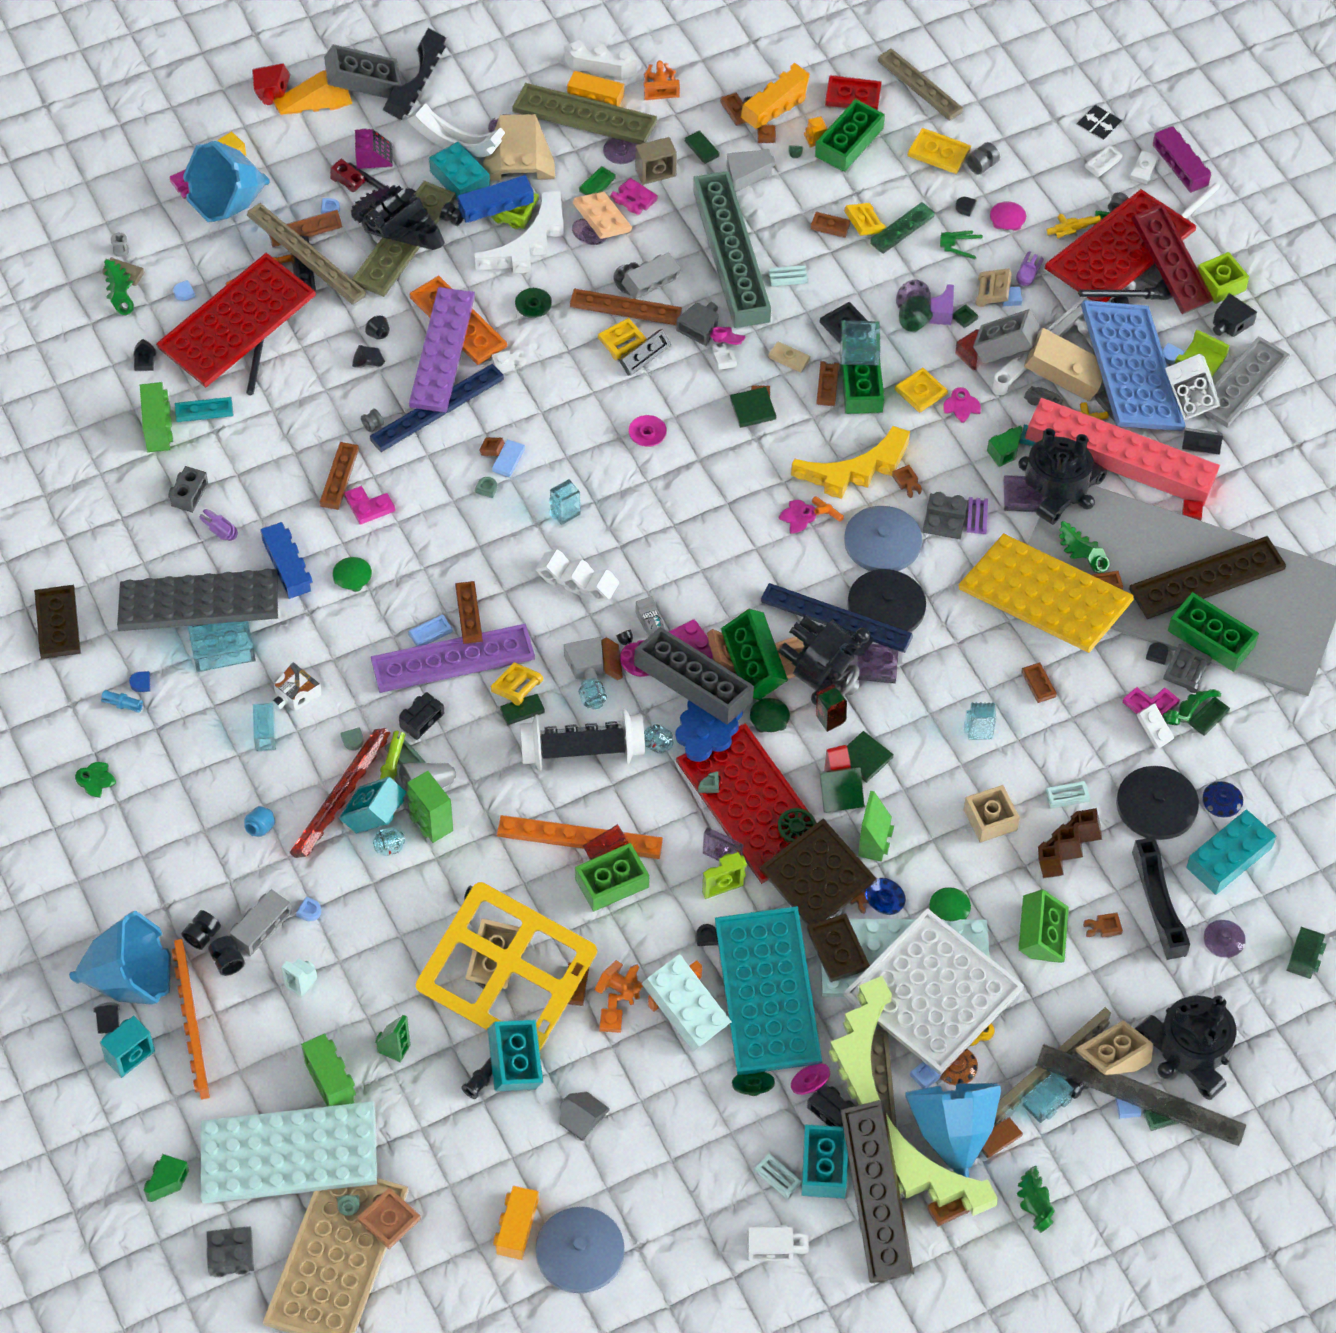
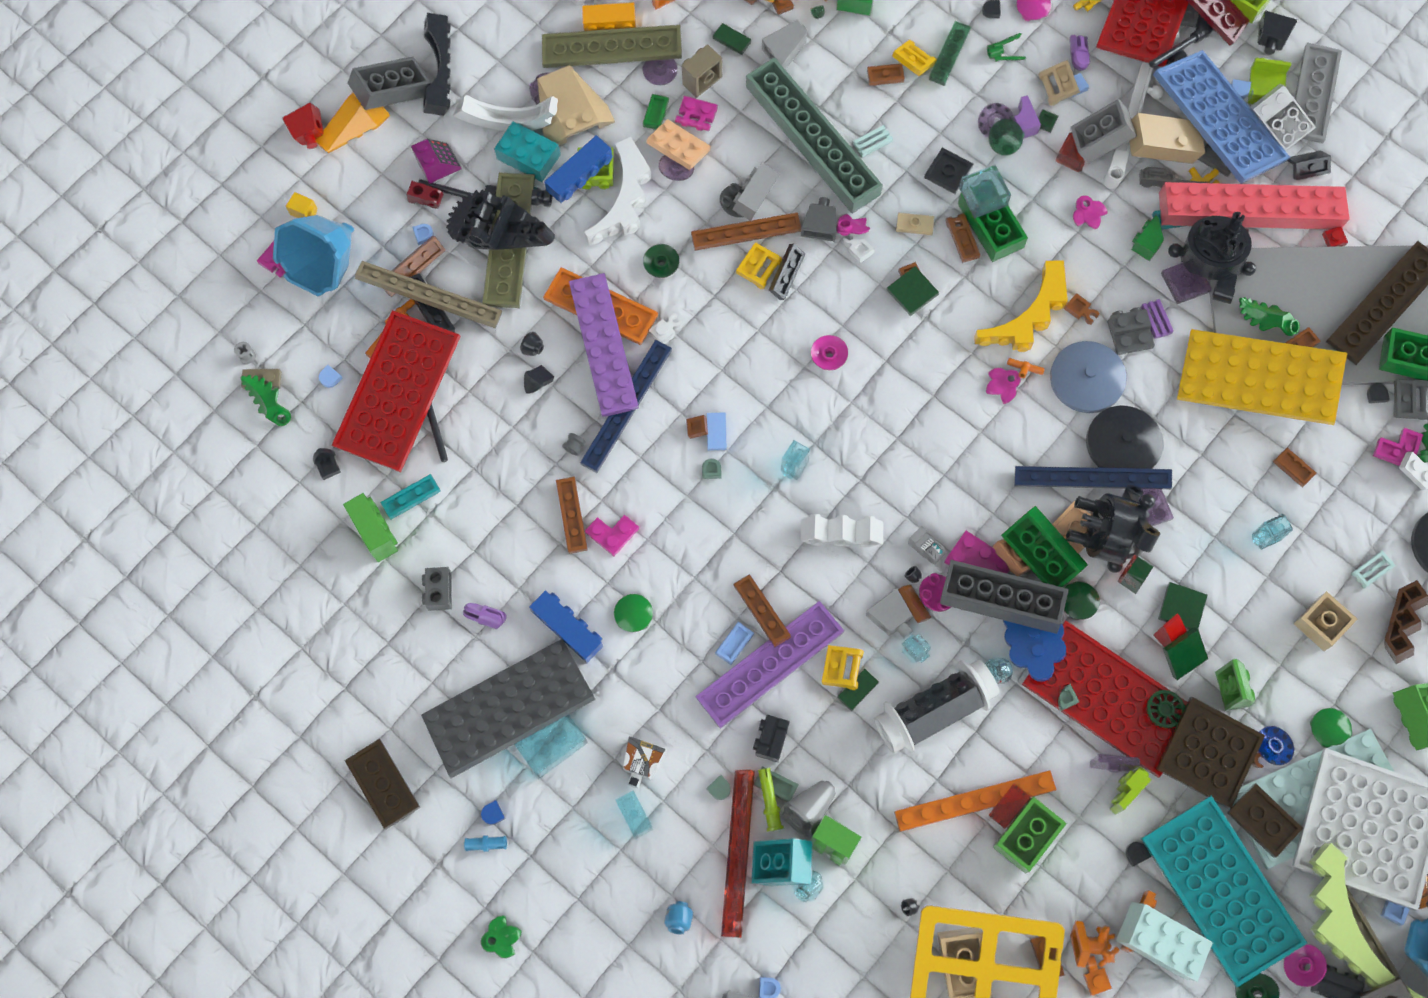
camera: 20 degrees left, 15 degrees up
(921, 390) = (1047, 211): yellow plate -> none

